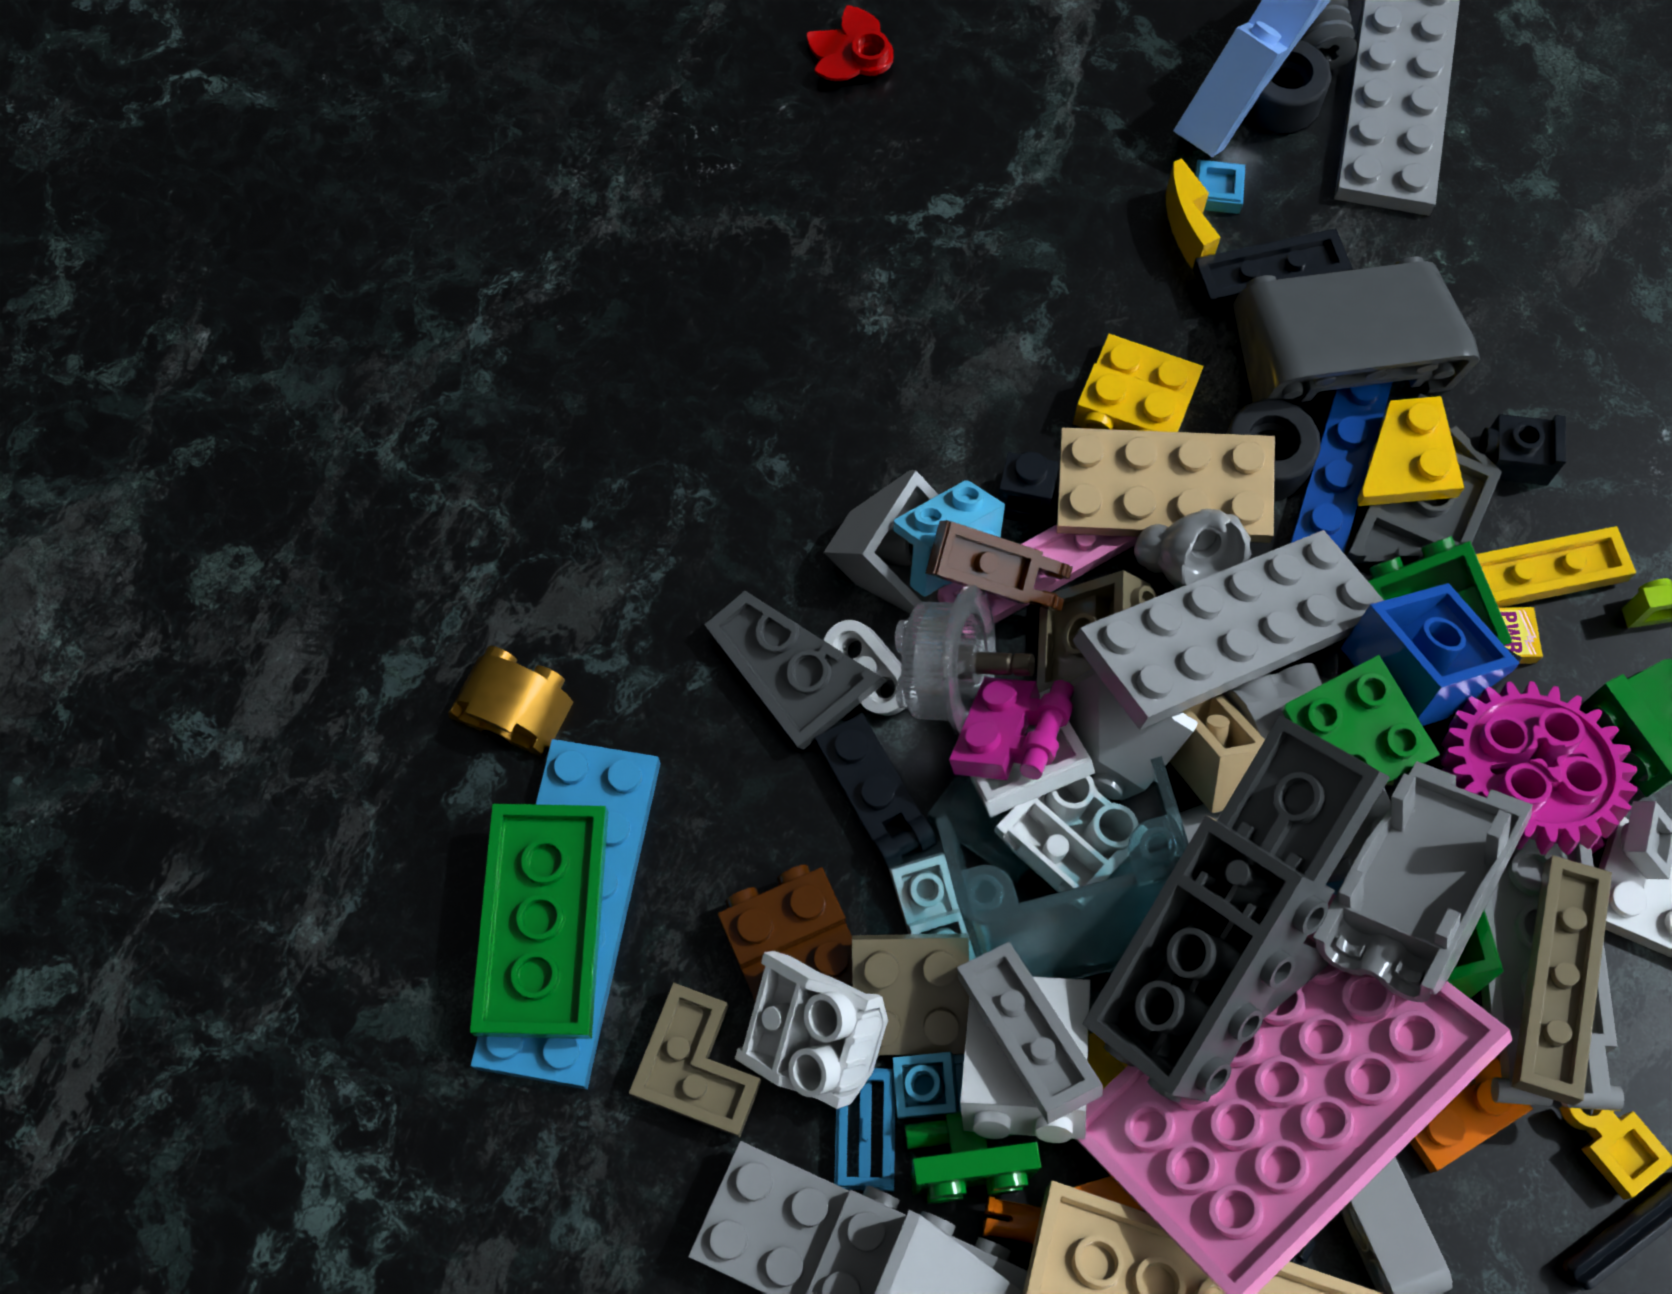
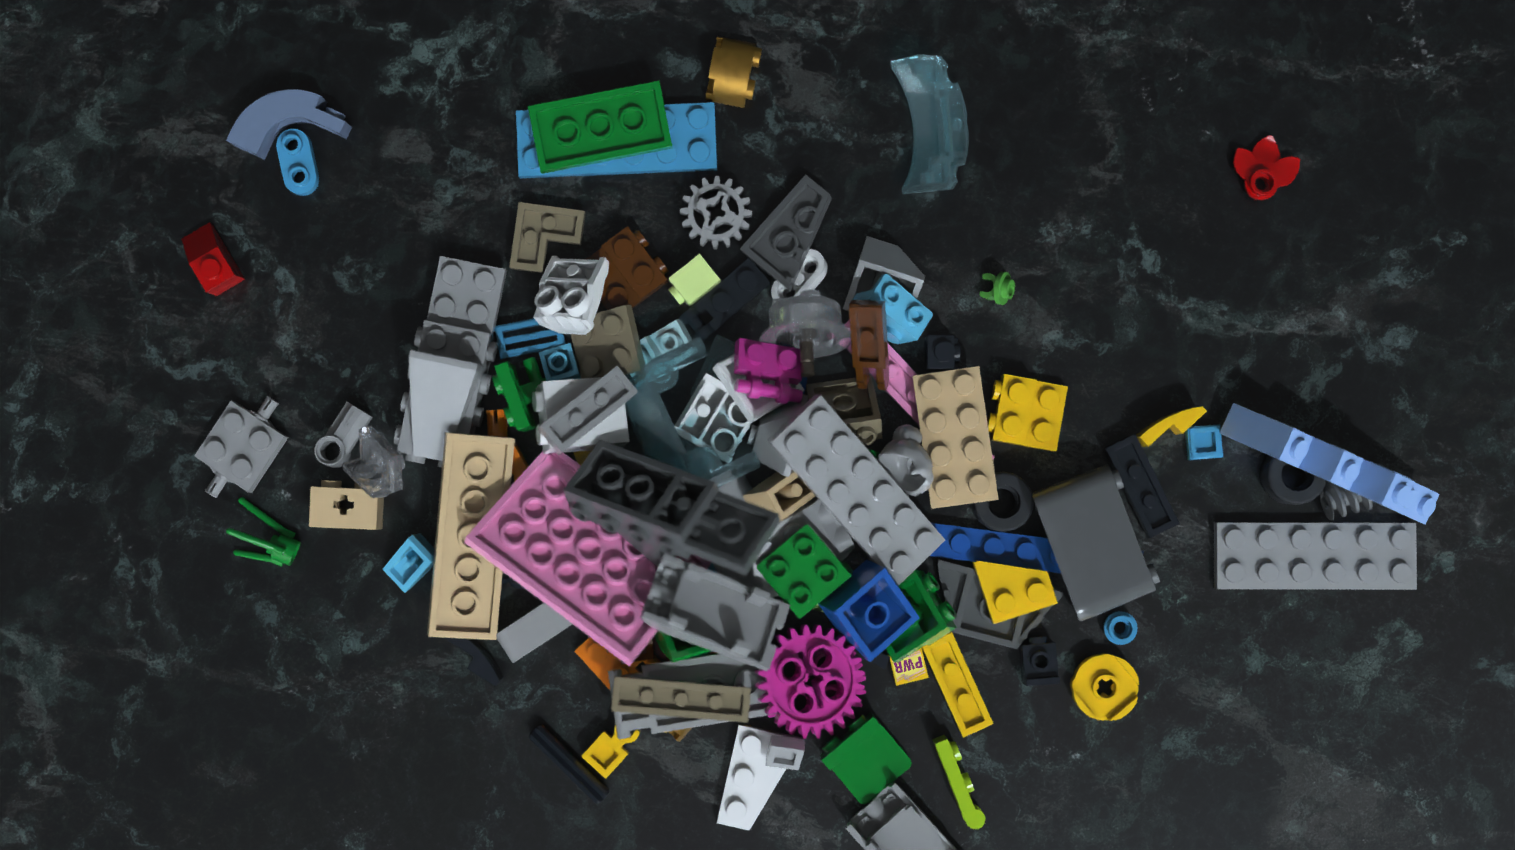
camera: 70 degrees right, 20 degrees up
(674, 431) = (937, 121): none -> clear light blue windscreen
(716, 790) = (729, 219): none -> light grey gear
(834, 829) = (693, 281): none -> yellowish green brick
(944, 388) = (1002, 287): none -> bright green plate
(1490, 329) = (1130, 628): none -> dark azure plate
(1553, 392) = (1104, 706): none -> yellow plate

